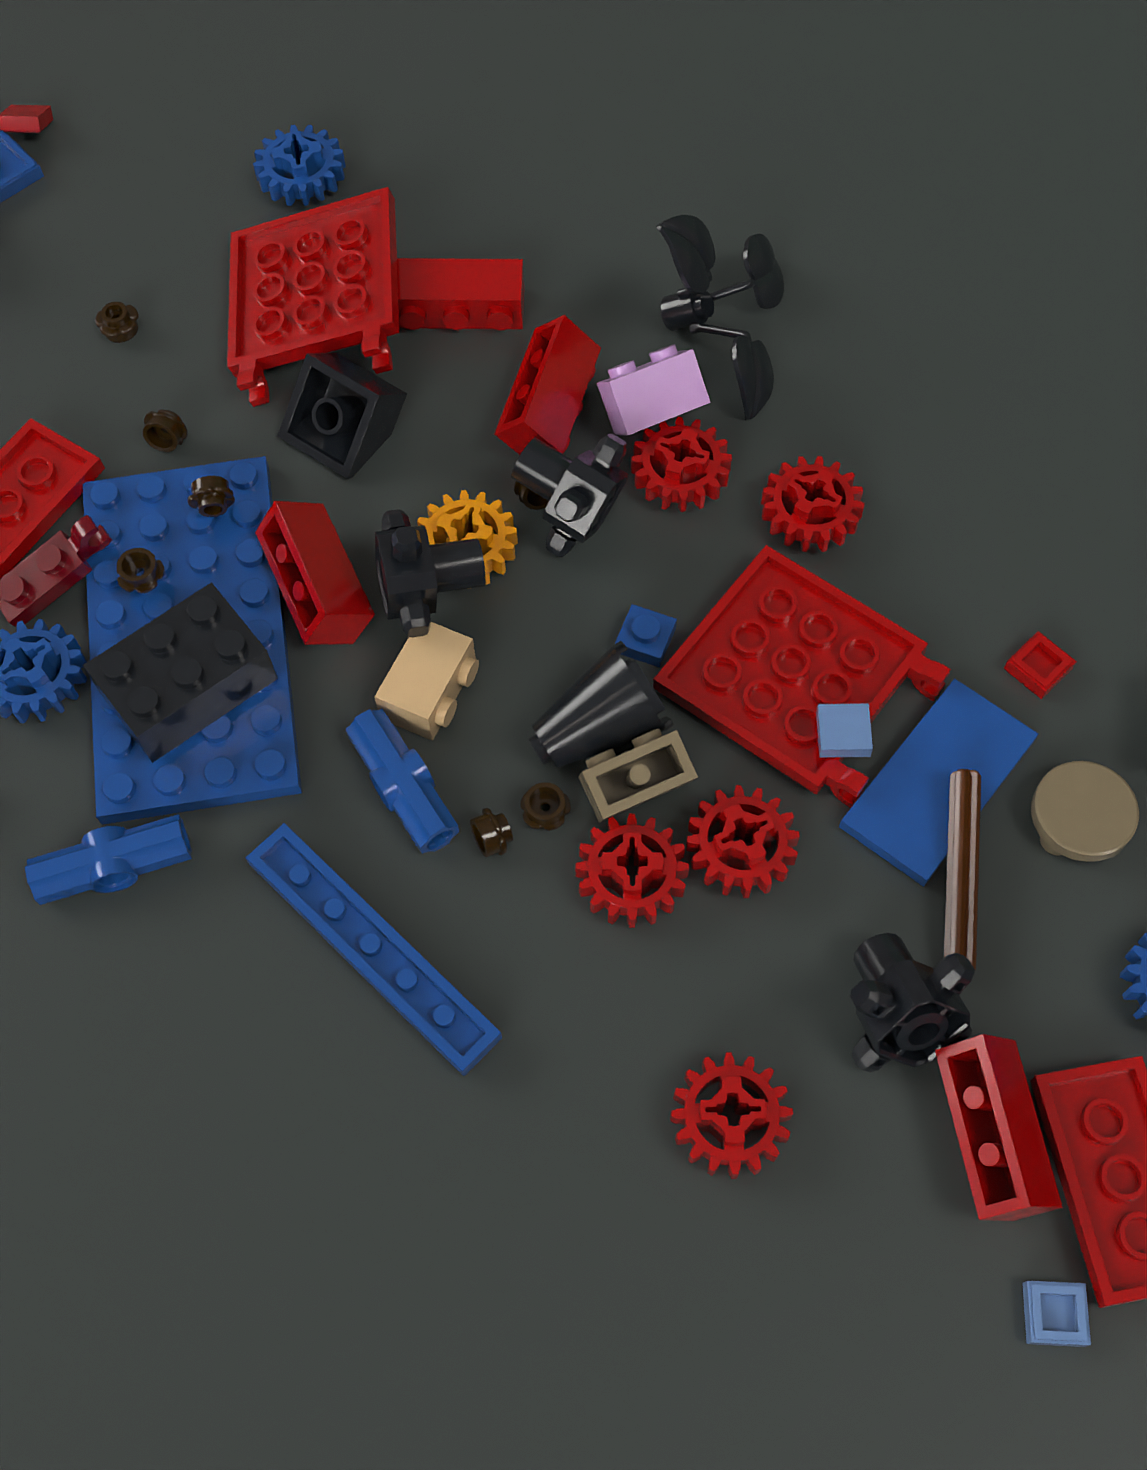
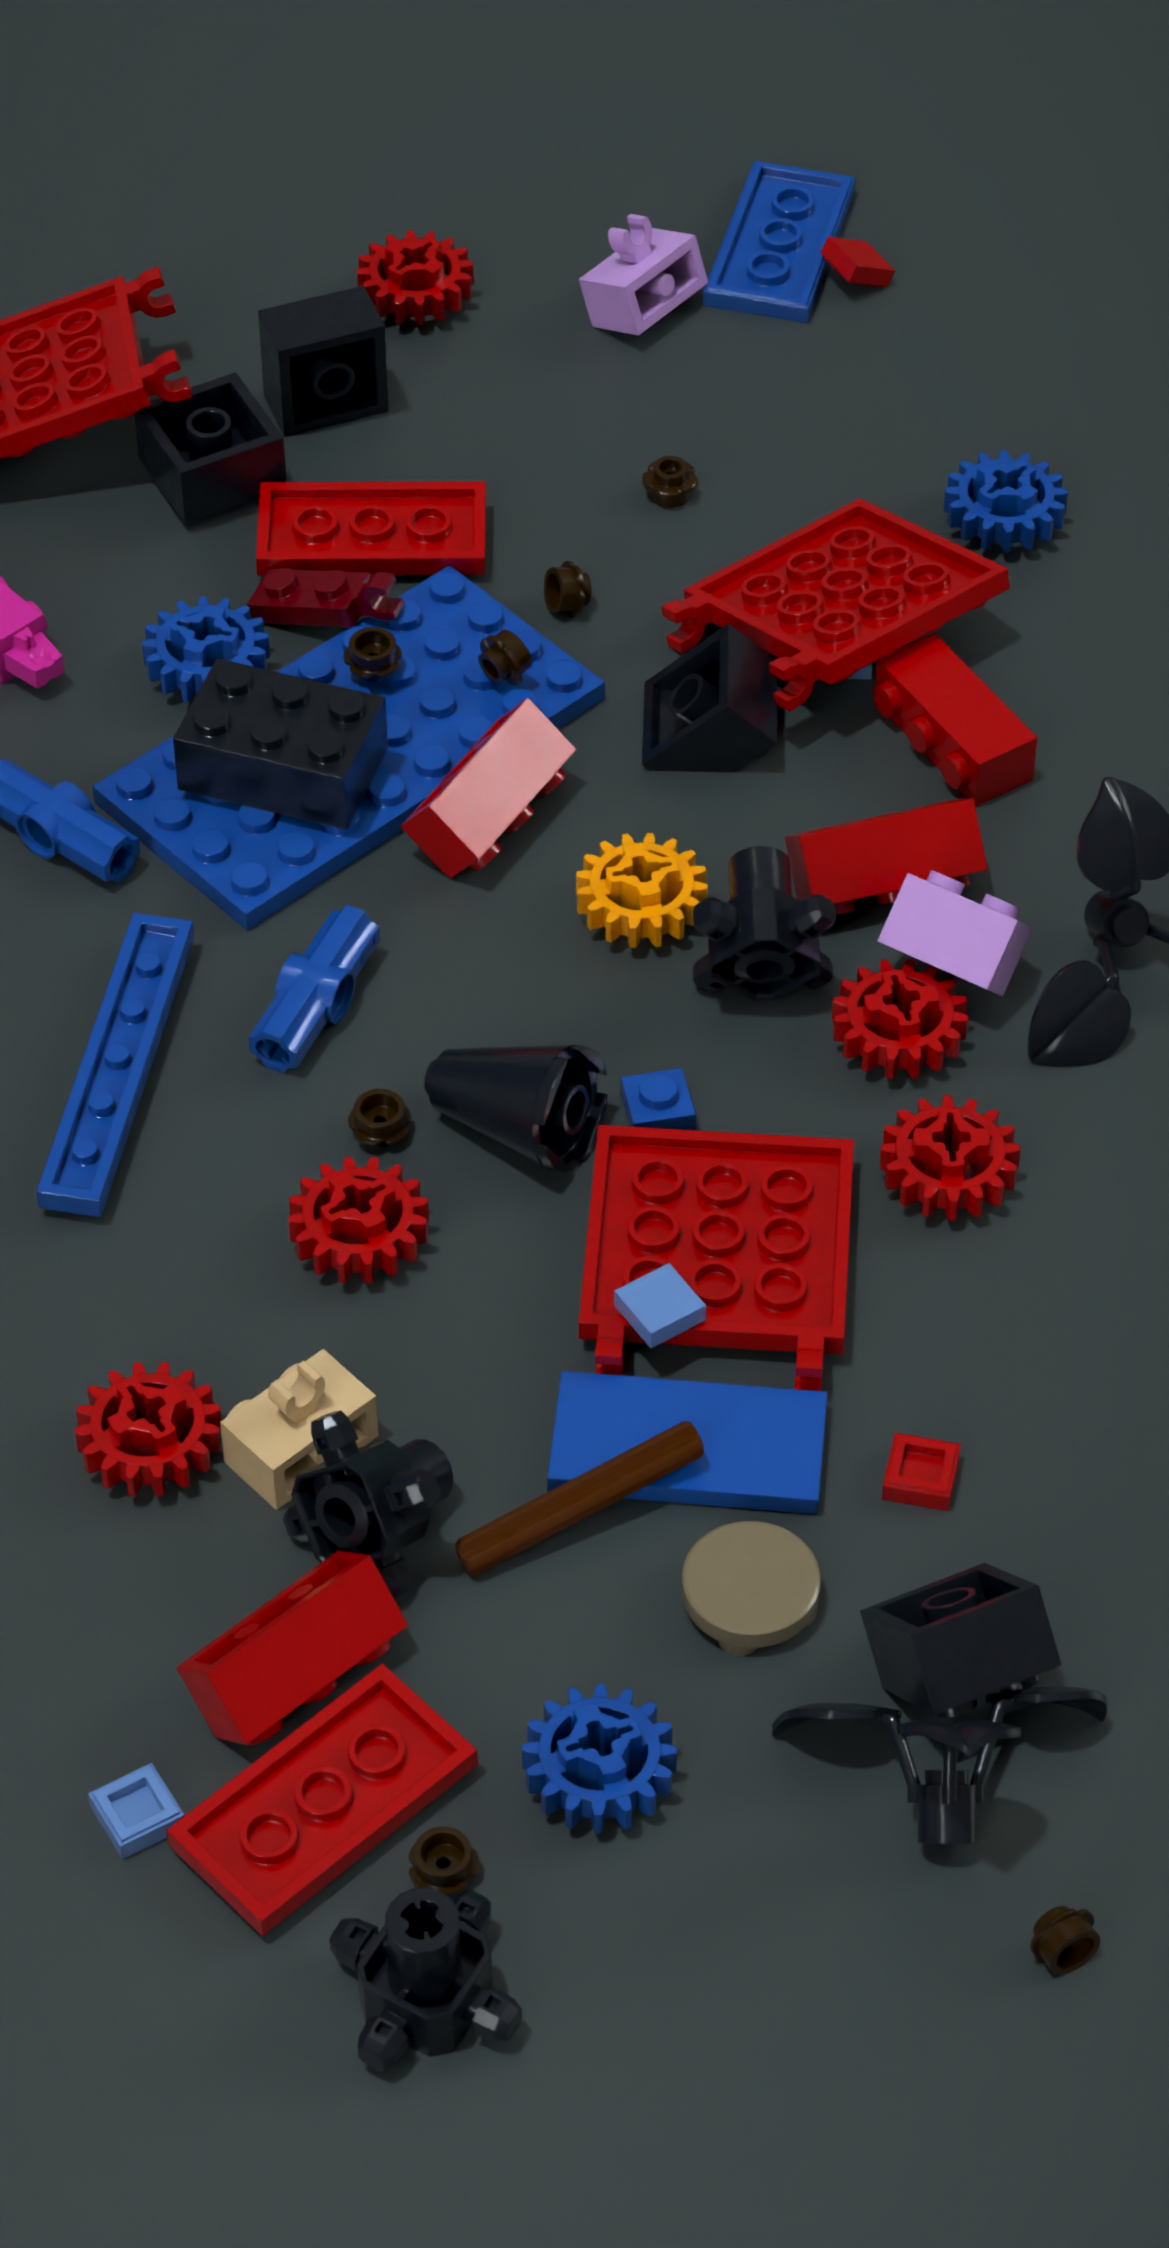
camera: 55 degrees right, 15 degrees down
(415, 571) = (539, 849): black piece -> none
(427, 679) = (445, 945): tan brick -> none
(491, 832) = (313, 1090): dark brown plate -> none
(638, 775) = (463, 1160): dark tan brick -> none
(734, 861) = (465, 1295): red gear -> none
(792, 1013) = (271, 1434): none -> tan brick

